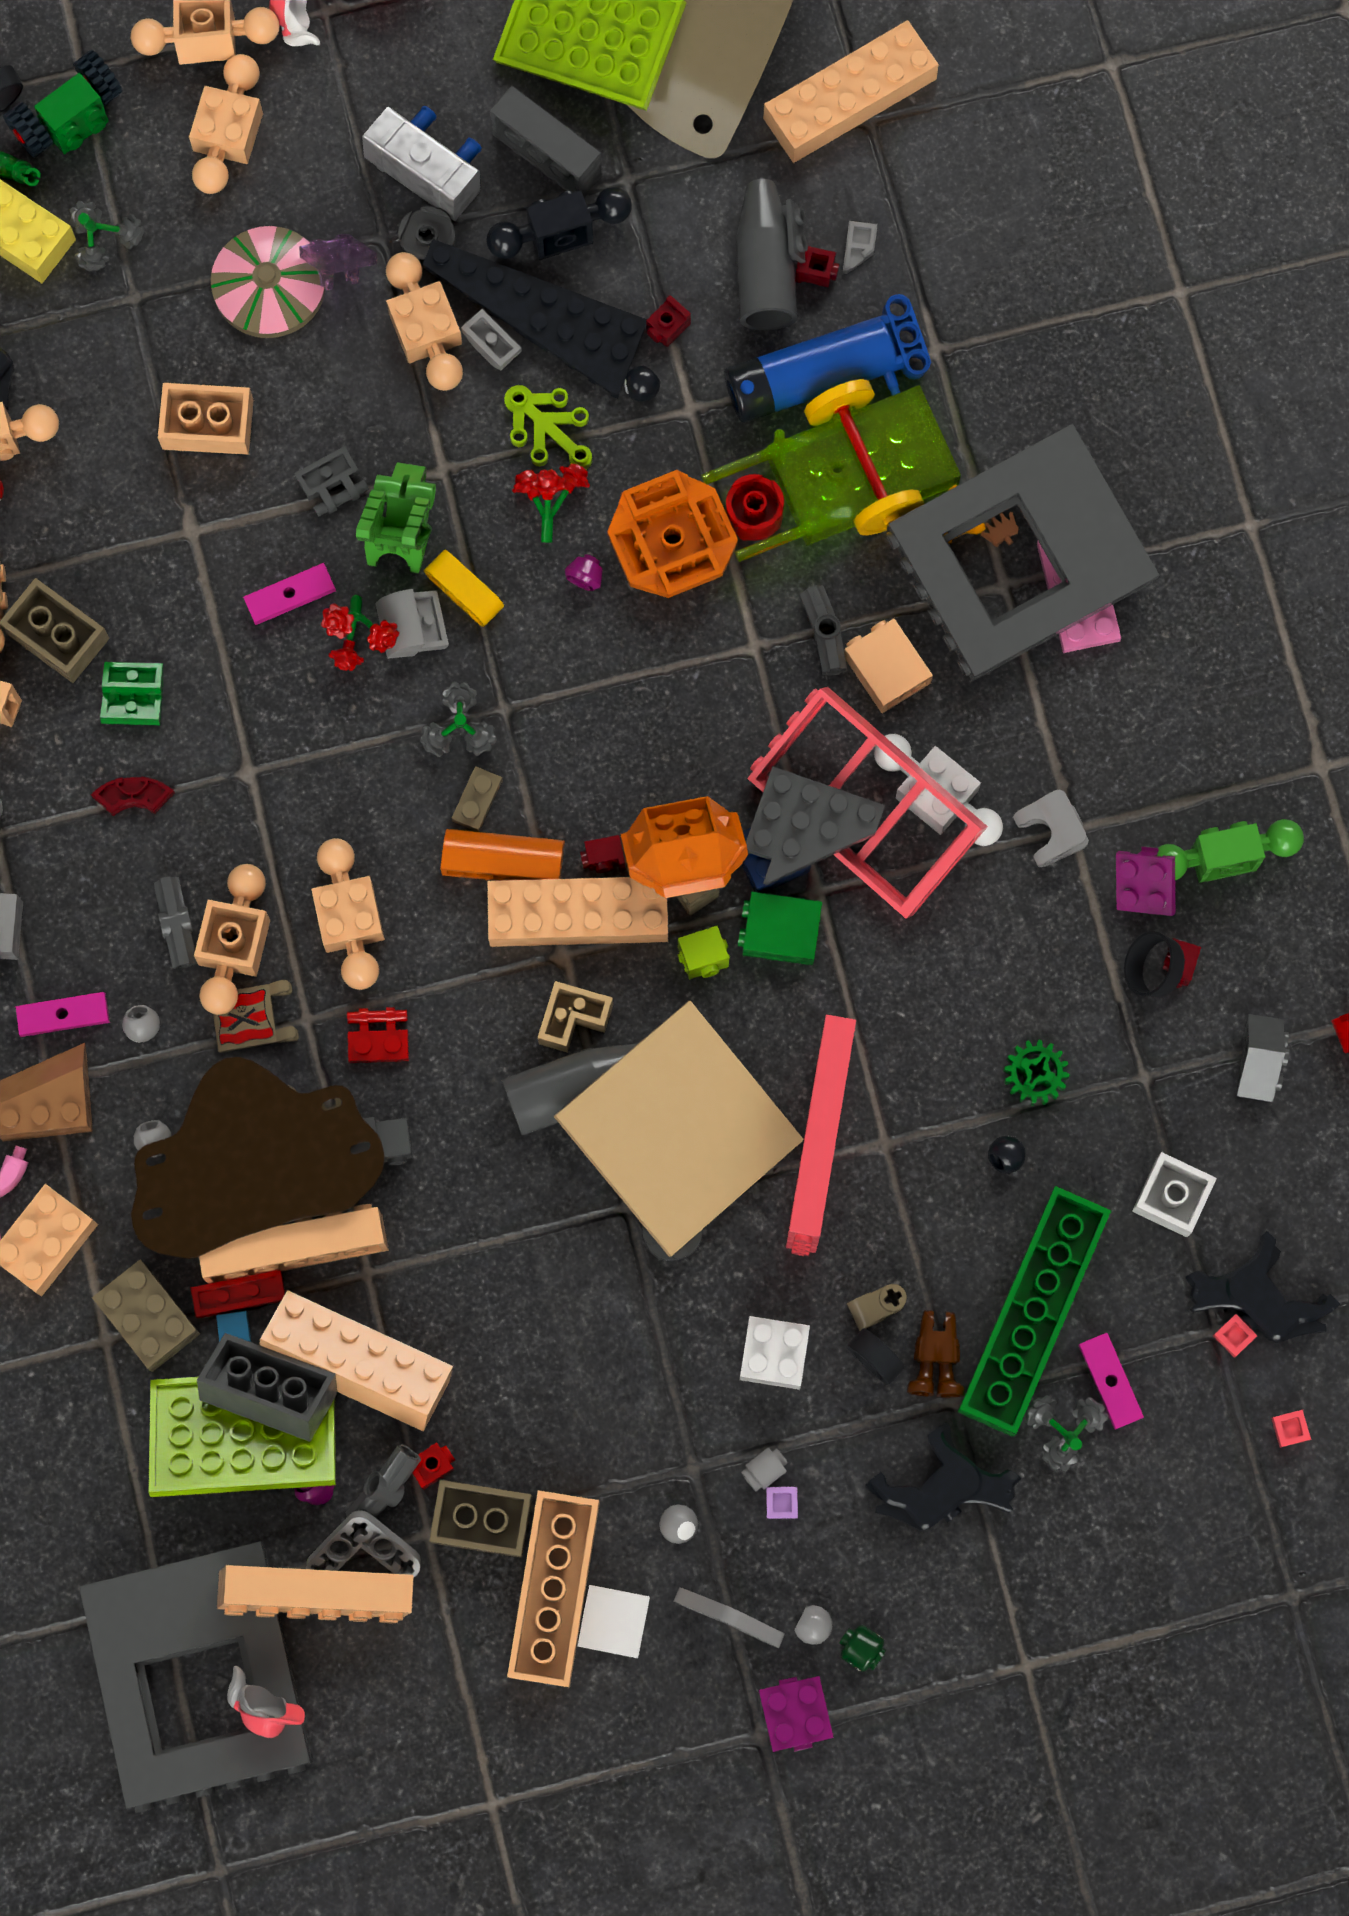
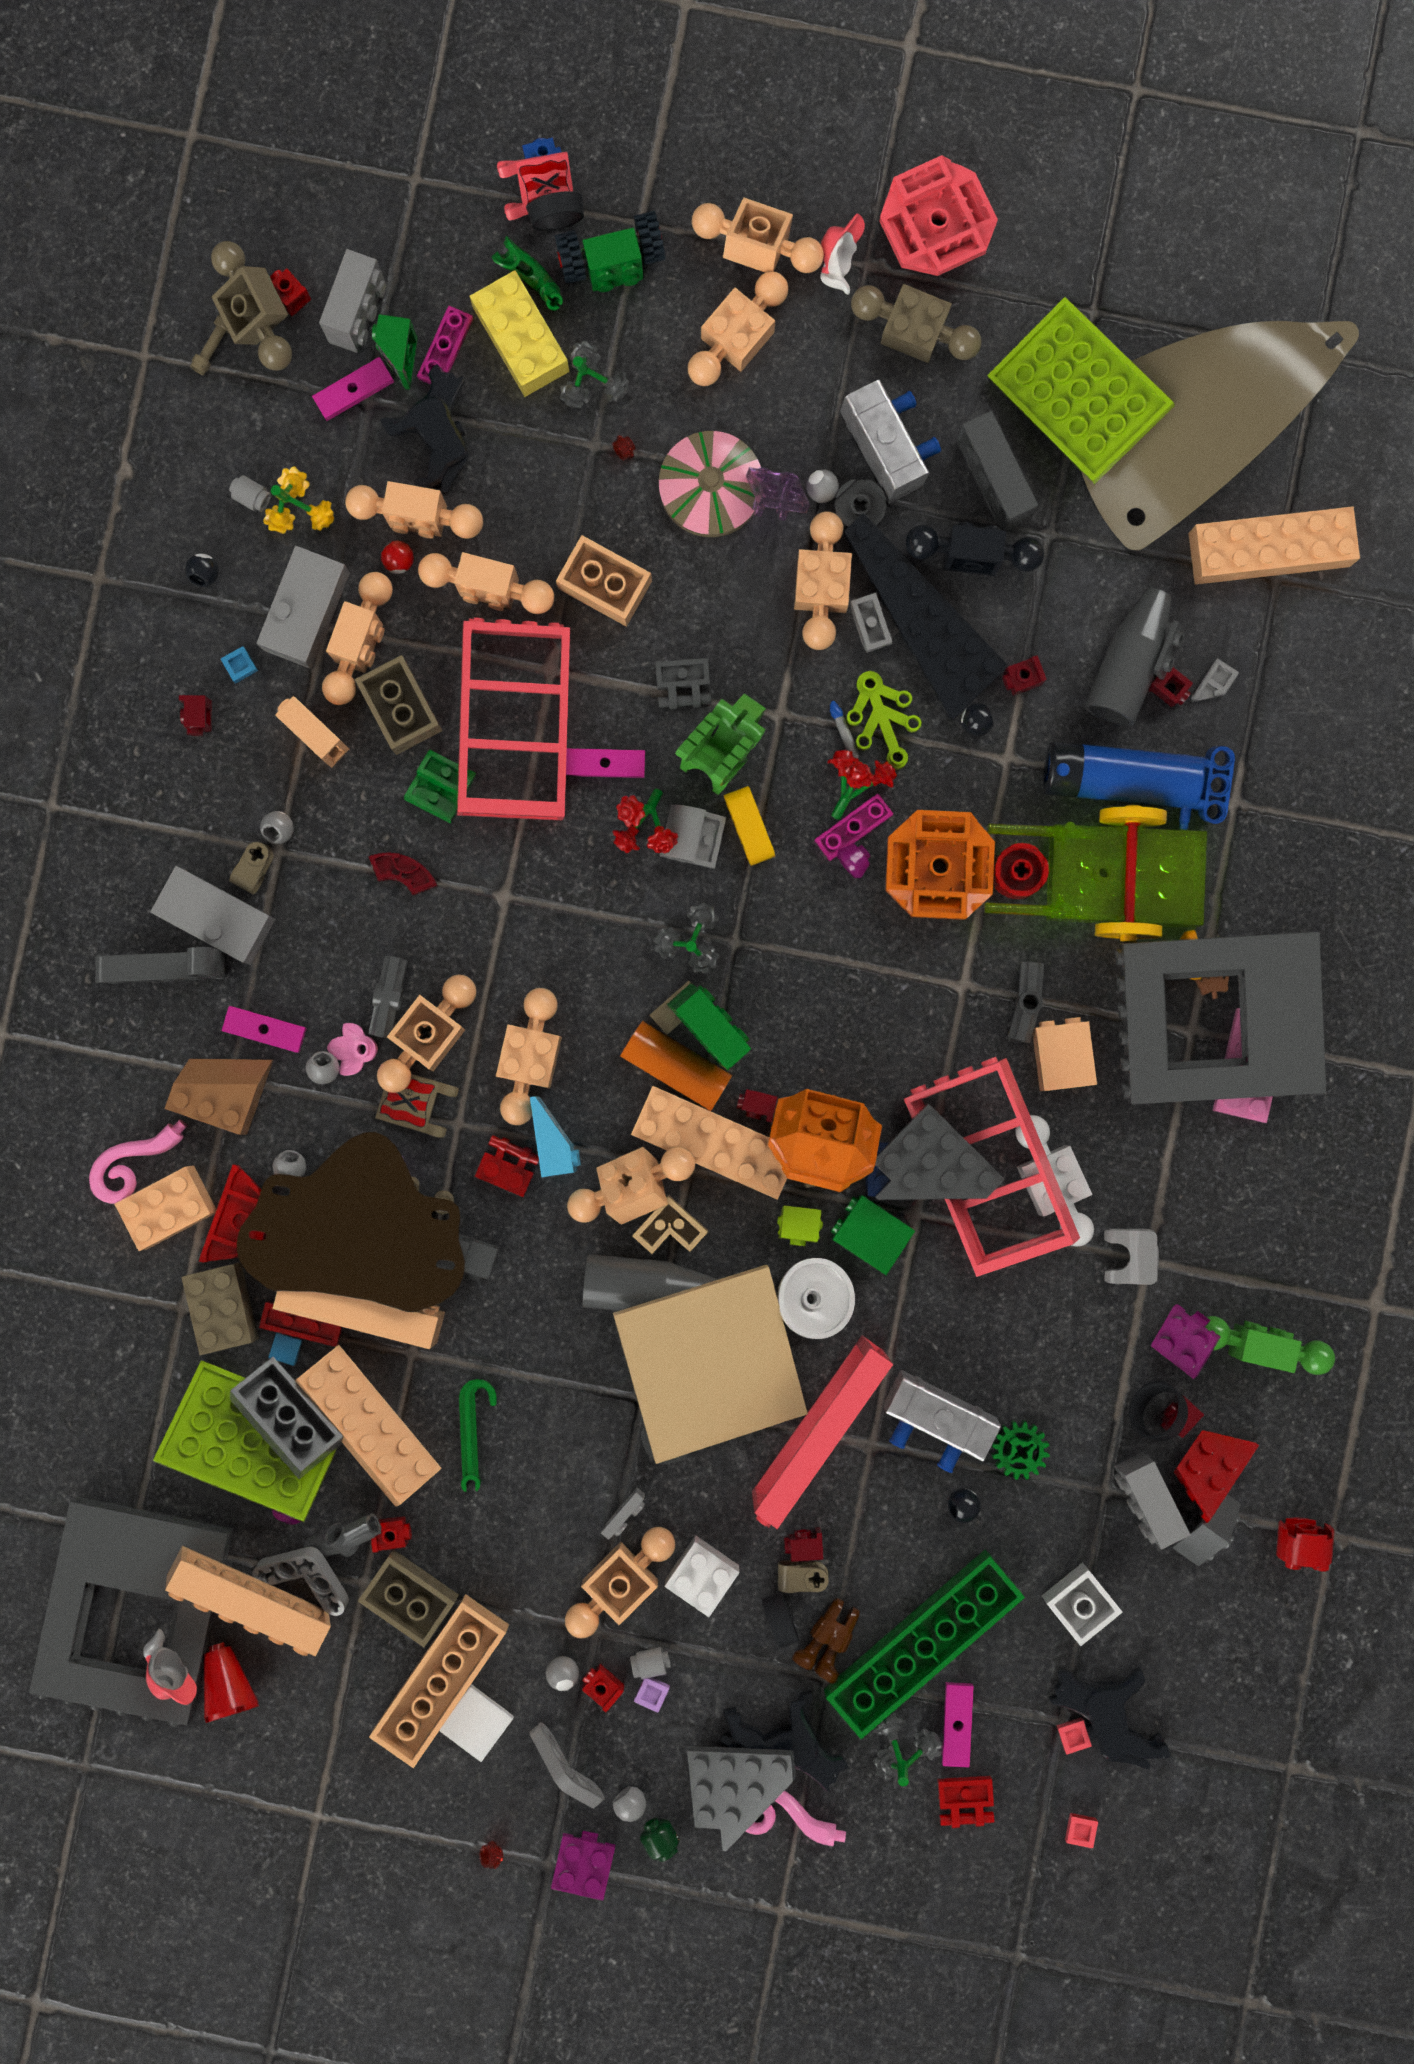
camera: 25 degrees right, 10 degrees up
(88, 472) = (486, 582): none -> light nougat brick
(116, 1236) = (234, 1207): none -> red wing
(159, 995) = (348, 1049): none -> bright pink plate
(165, 285) = (624, 447): none -> clear red plate
(211, 679) = (501, 807): none -> coral window
(332, 1704) = (225, 1684): none -> red cone
(380, 233) = (822, 486): none -> light grey piece
(399, 41) = (916, 323): none -> dark tan brick
(418, 989) = (553, 1145): none -> medium azure slope
(463, 1319) = (469, 1429): none -> green piece
(513, 988) = (631, 1185): none -> light nougat brick
(517, 794) = (710, 1025): none -> green brick
(518, 458) = (837, 714): none -> light grey piece
(577, 527) = (867, 817): none -> dark pink tile
(661, 1342) = (616, 1523): none -> light grey plate
(693, 1399) = (620, 1583): none -> light nougat brick
(694, 1750) = (491, 1855): none -> clear red plate
(735, 1526) = (604, 1677): none -> red brick
(762, 1002) = (831, 1293): none -> white dish
(865, 1272) = (804, 1545): none -> dark red brick
(913, 1550) = (736, 1786): none -> dark grey wing
(938, 1073) = (941, 1416): none -> flat silver piece
(1018, 1560) = (816, 1830): none -> bright pink plant
(1154, 1447) = (966, 1793): none -> red plate
(1190, 1056) = (1151, 1501): none -> light grey brick
(1237, 995) = (1213, 1468): none -> red wing

